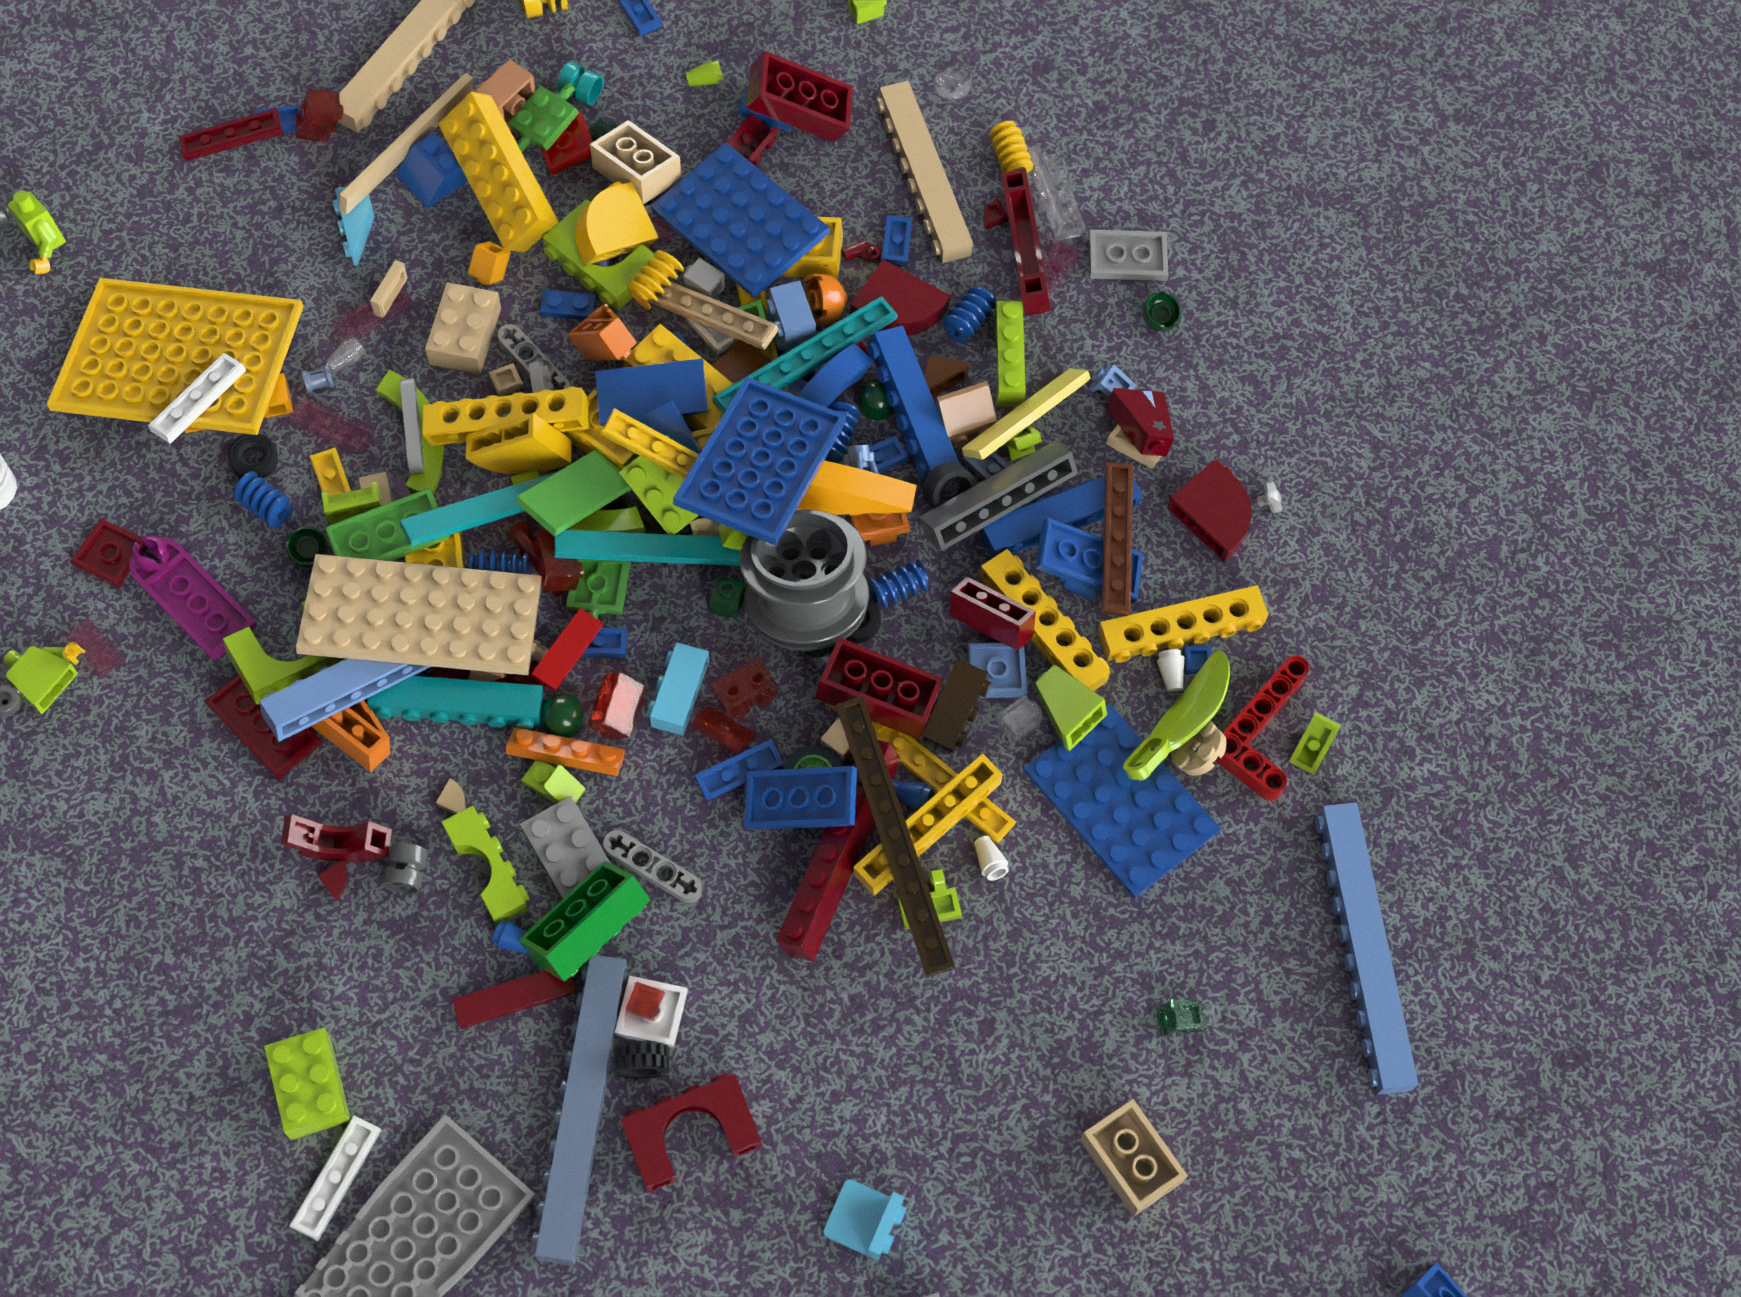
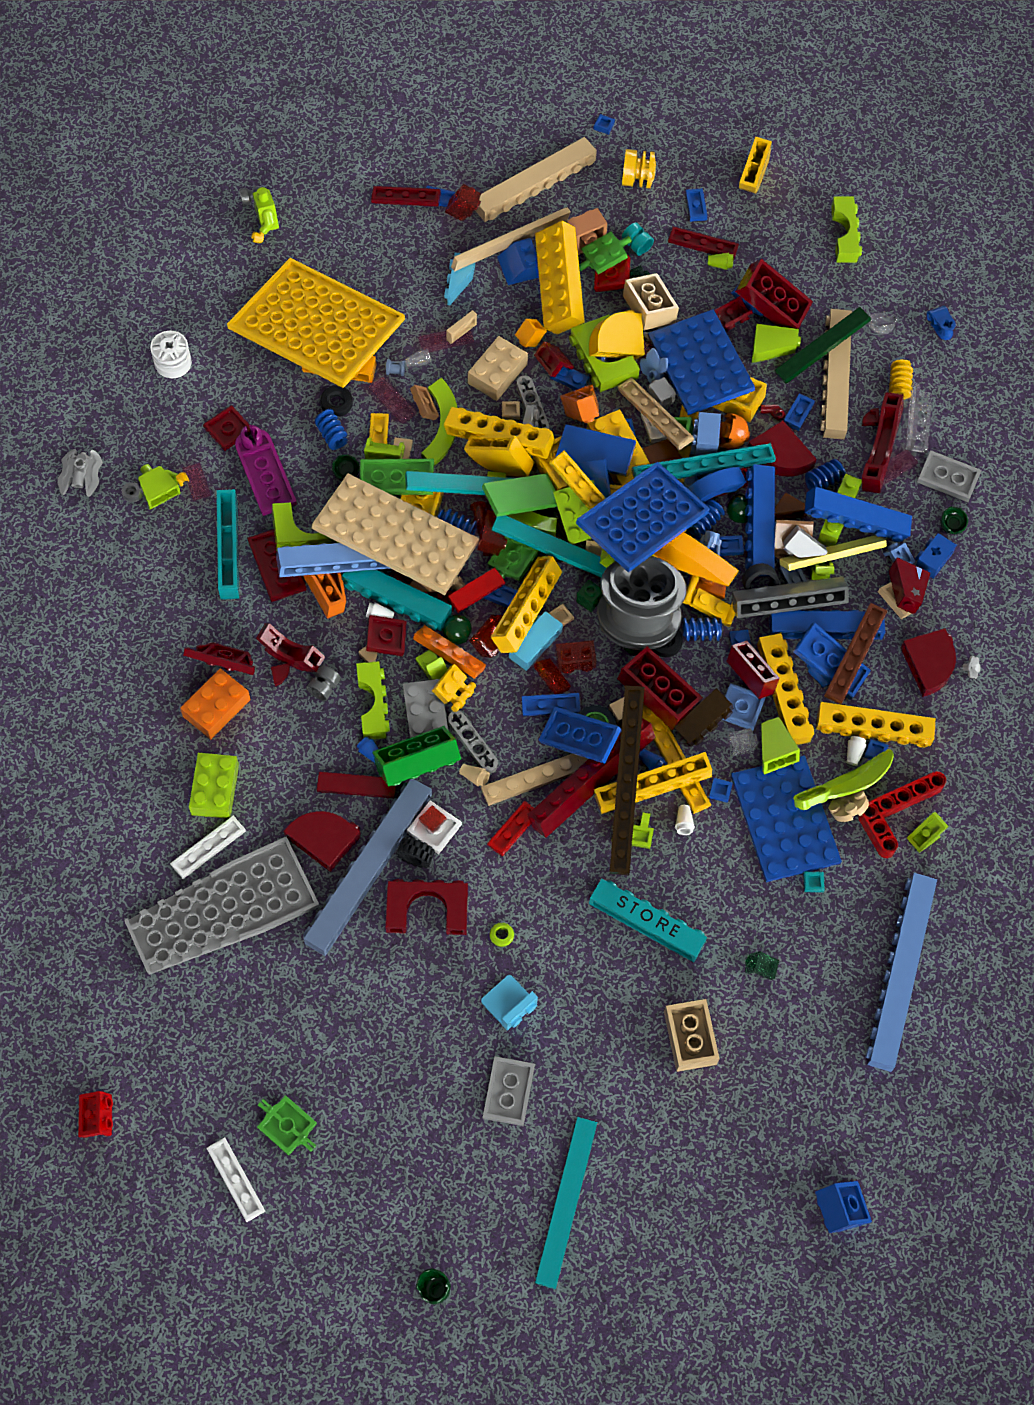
camera: 25 degrees right, 0 degrees up
(180, 722) = (227, 544): none -> teal brick
(196, 398) = (316, 352): white tile -> none
(242, 887) = (222, 655): none -> dark red wing
(258, 962) = (215, 703): none -> orange brick
(379, 412) = (424, 402): none -> medium nougat plate
(412, 426) = (440, 417): light grey beam -> none
(442, 735) = (378, 610): none -> white cone
(466, 764) = (386, 635): none -> dark red plate
(499, 1092) = (323, 837): none -> dark red brick
(533, 288) = (552, 358): none -> dark red panel
(586, 801) = (448, 686): none -> yellow plate
(647, 644) = (526, 604): none -> yellow brick
(653, 277) = (629, 378): yellow piece -> none
(667, 58) = (701, 242): none -> dark red tile
(676, 912) = (476, 775): none -> tan cone
(679, 245) = (653, 366): none -> medium blue plate
(699, 637) = (562, 614): none -> tan tile
(758, 885) = (532, 778): none -> tan plate
(760, 969) = (511, 830): none -> red tile
(807, 1138) = (501, 942): none -> lime piece
(823, 159) = (774, 342): none -> lime slope
(891, 140) = (822, 345): none -> dark green tile
(895, 546) = (708, 603): none -> yellow plate
(951, 577) = (739, 636): none -> blue plate
(985, 417) = (803, 544): none -> slope
(1003, 1019) = (648, 920): none -> teal brick
(1020, 796) = (720, 790): none -> blue plate
(1029, 55) = (941, 322): none -> blue piece
(1038, 349) = (858, 514): none -> blue brick
(1162, 354) = (941, 548): none -> blue brick
(1196, 872) = (813, 881): none -> teal tile

